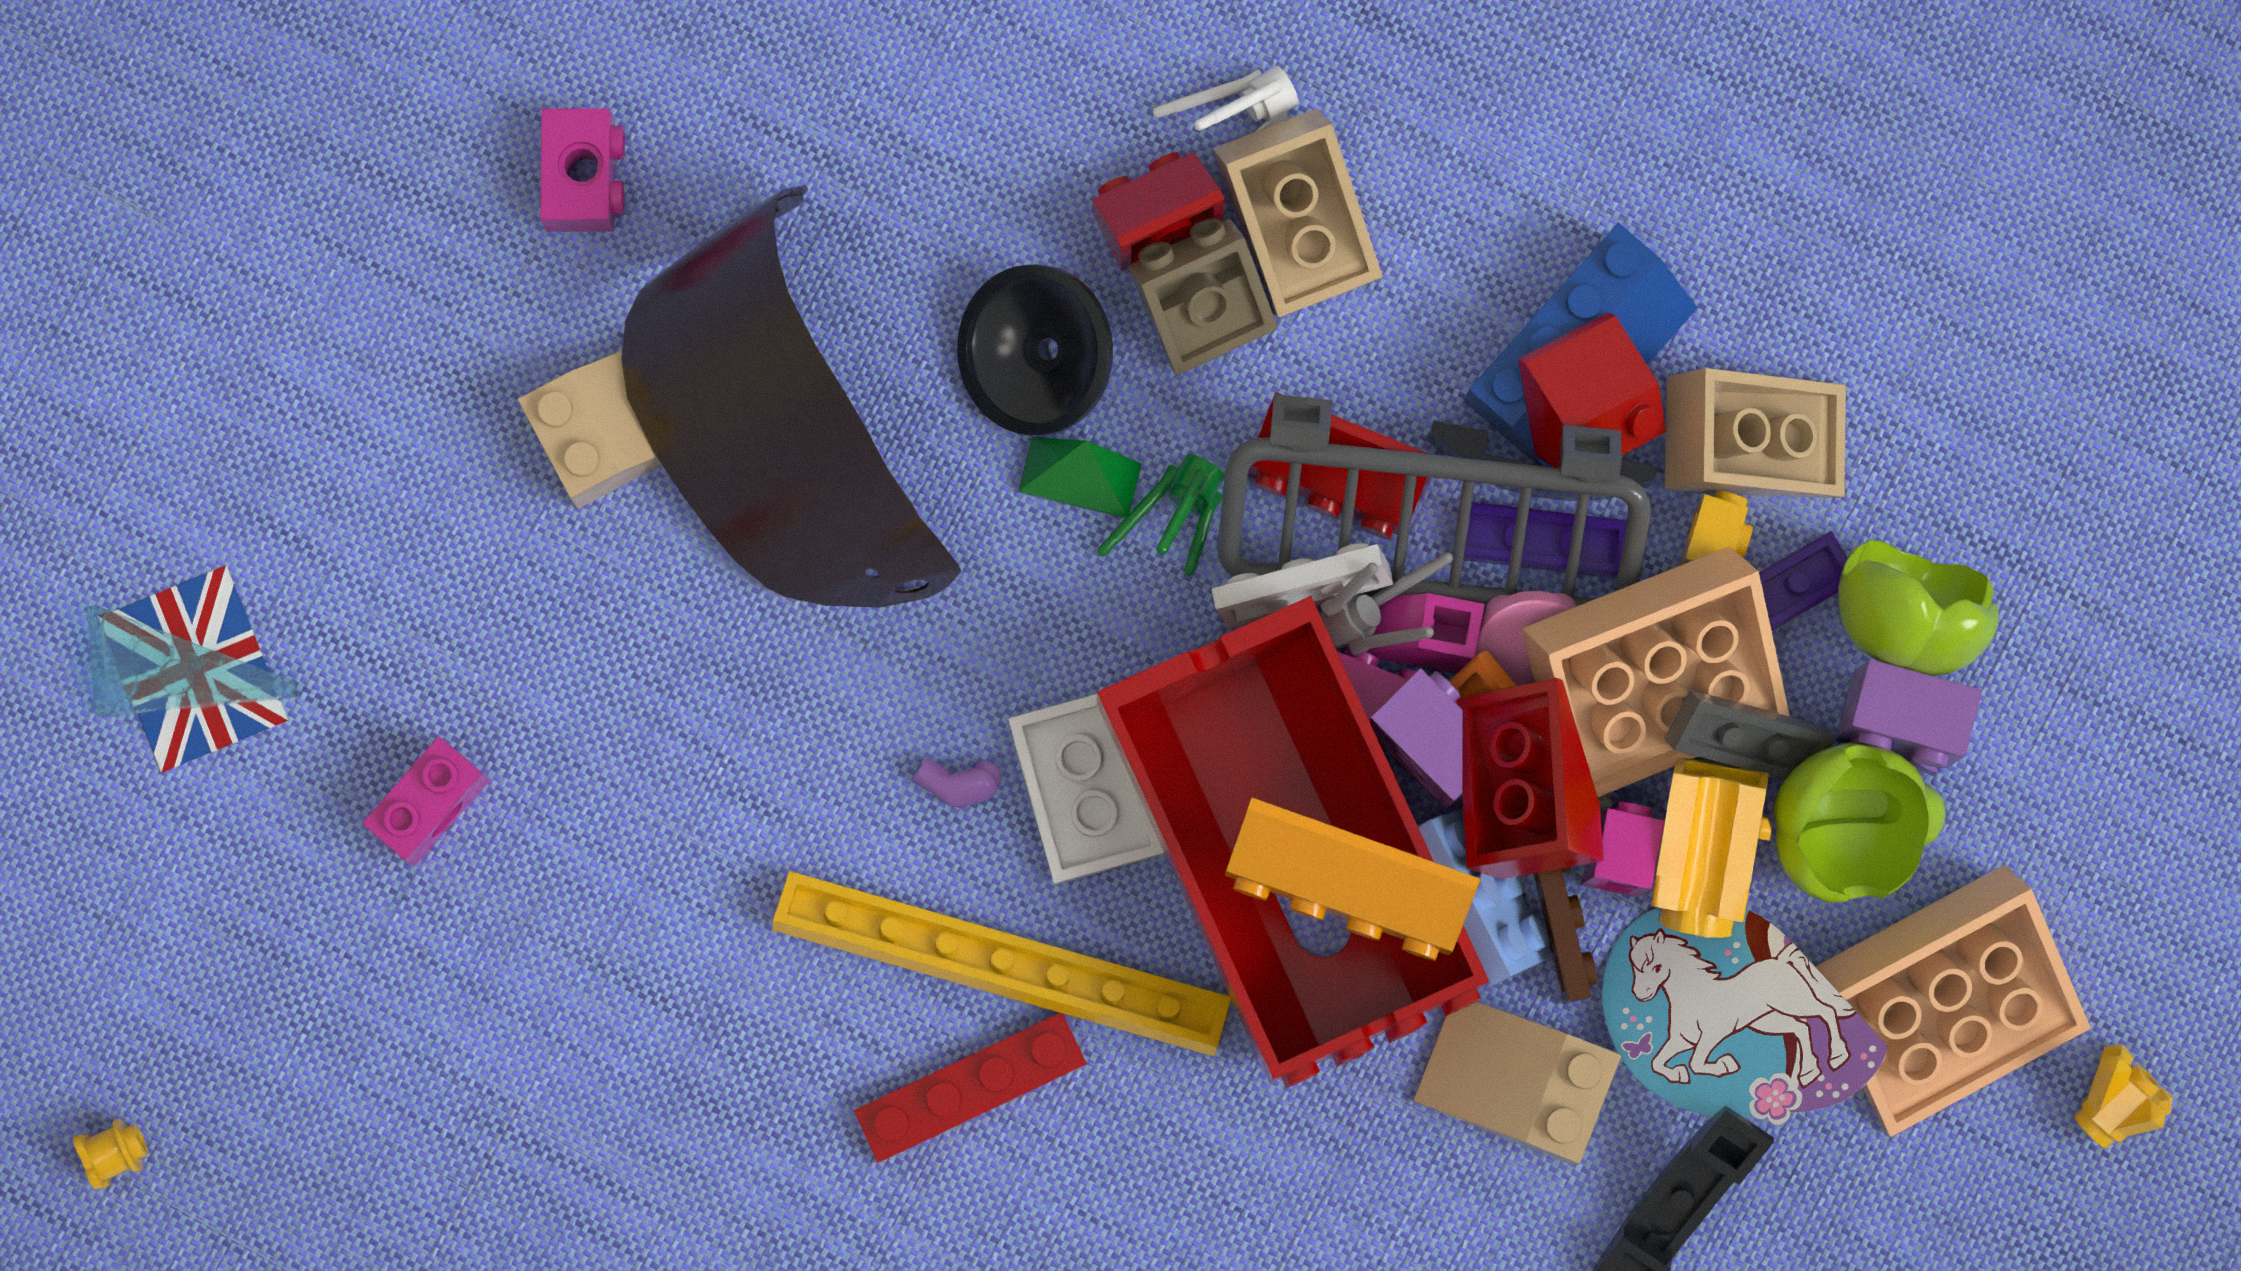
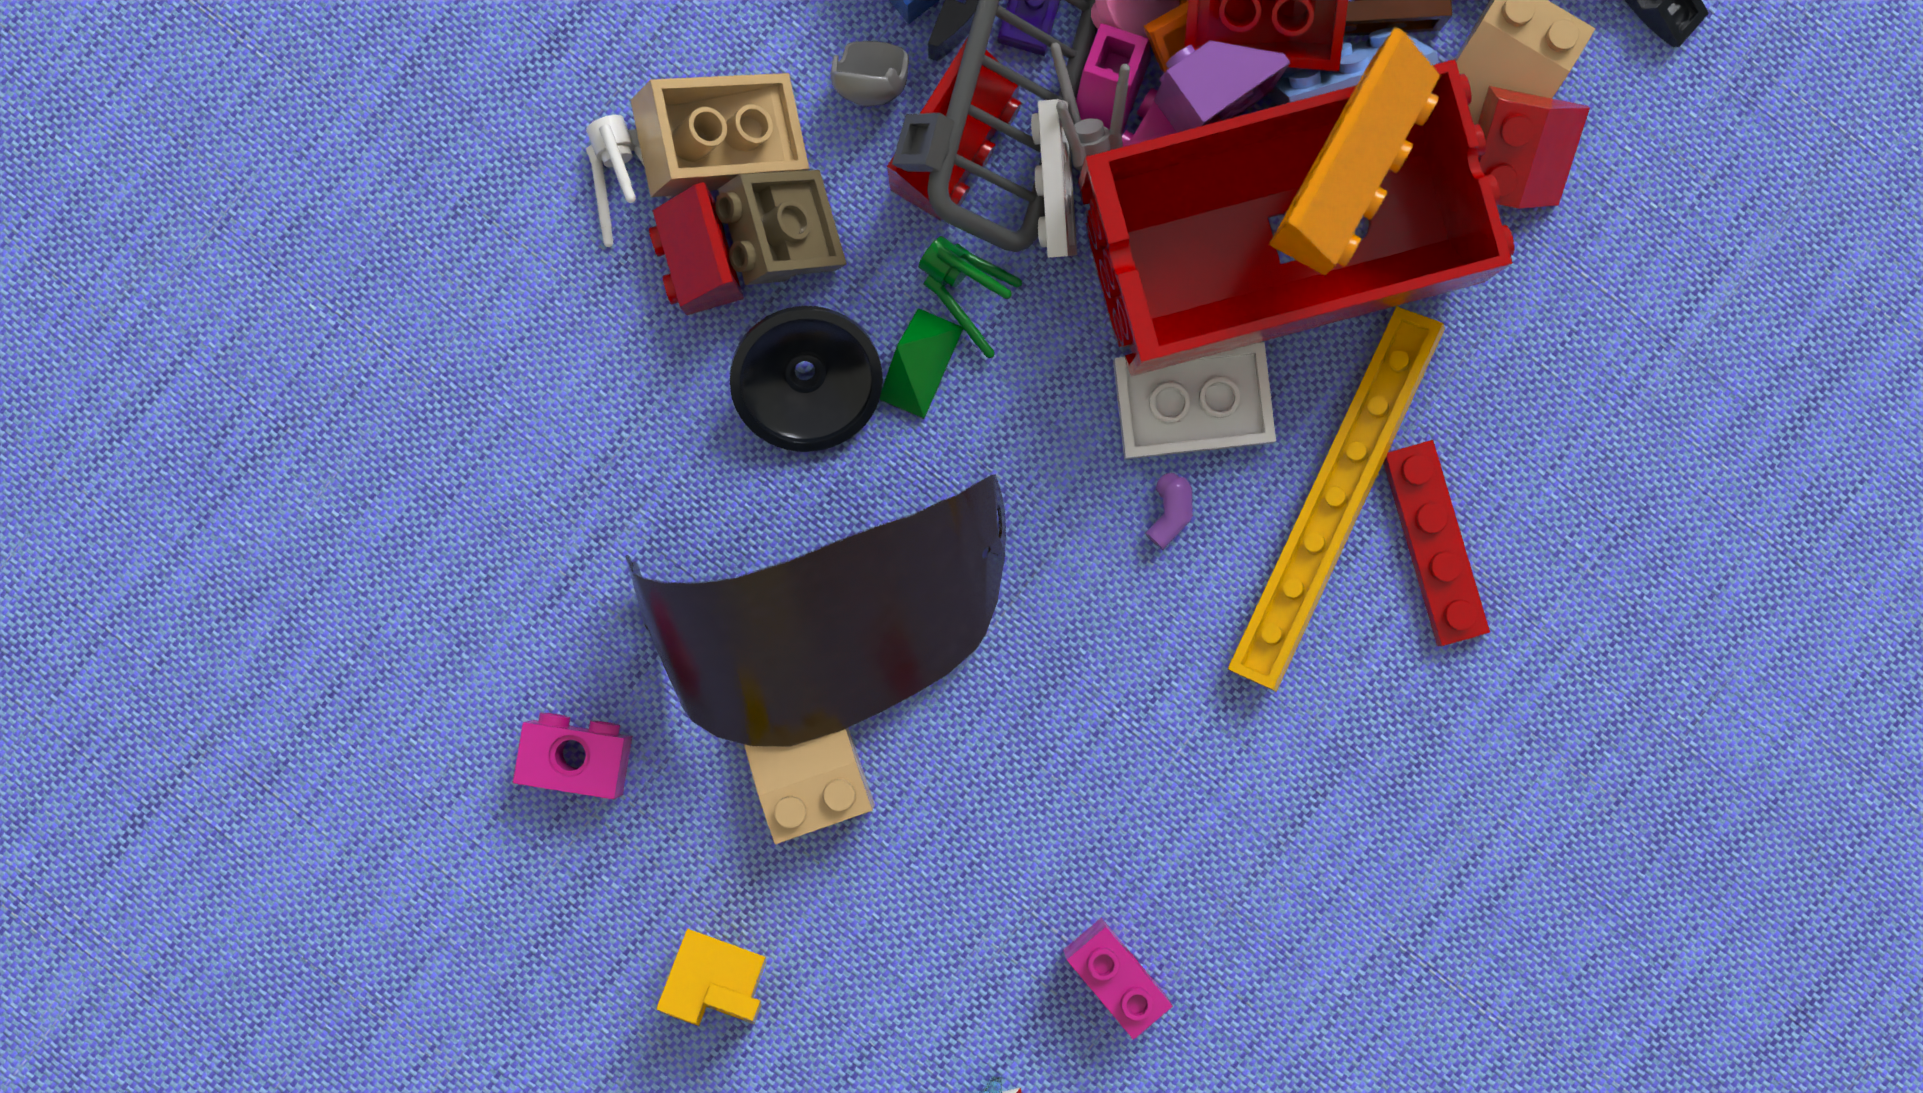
camera: 85 degrees left, 5 degrees up
(363, 358) = (712, 977): none -> yellow plate
(1394, 364) = (870, 72): none -> light grey hair
(1430, 1110) = (1529, 145): none -> red slope

